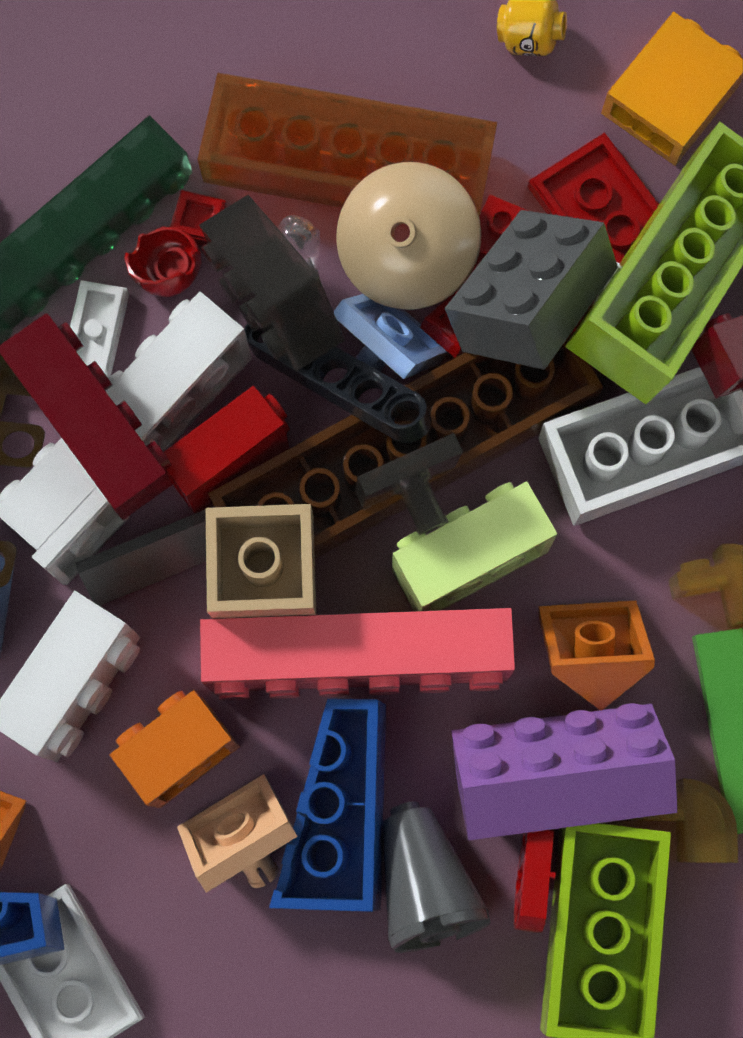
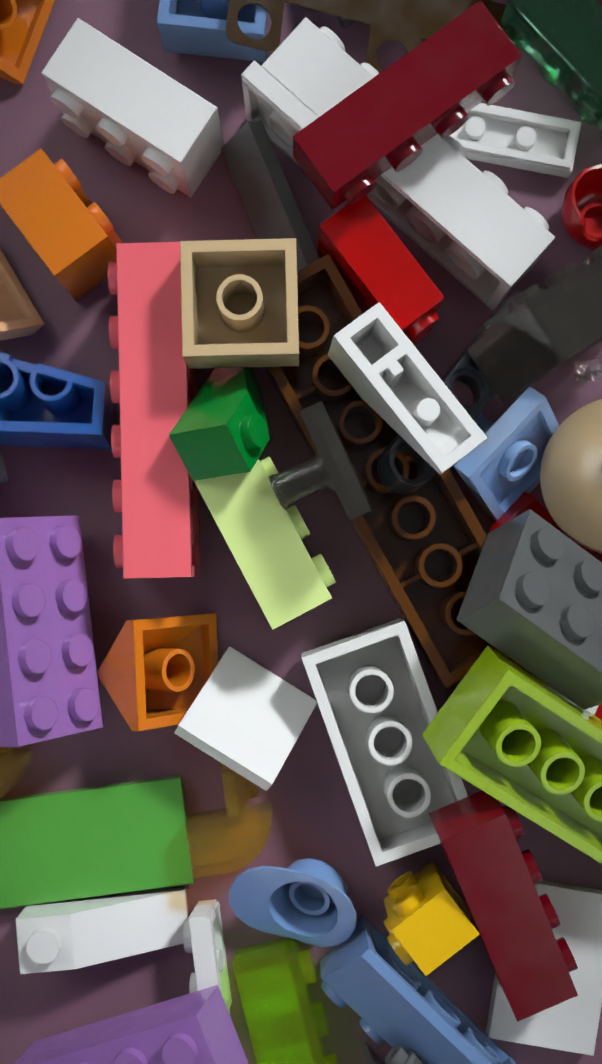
camera: 90 degrees right, 10 degrees up
(340, 415) = (404, 389): none -> white slope
(372, 580) = (223, 425): none -> green slope
(636, 569) = (246, 718): none -> white tile

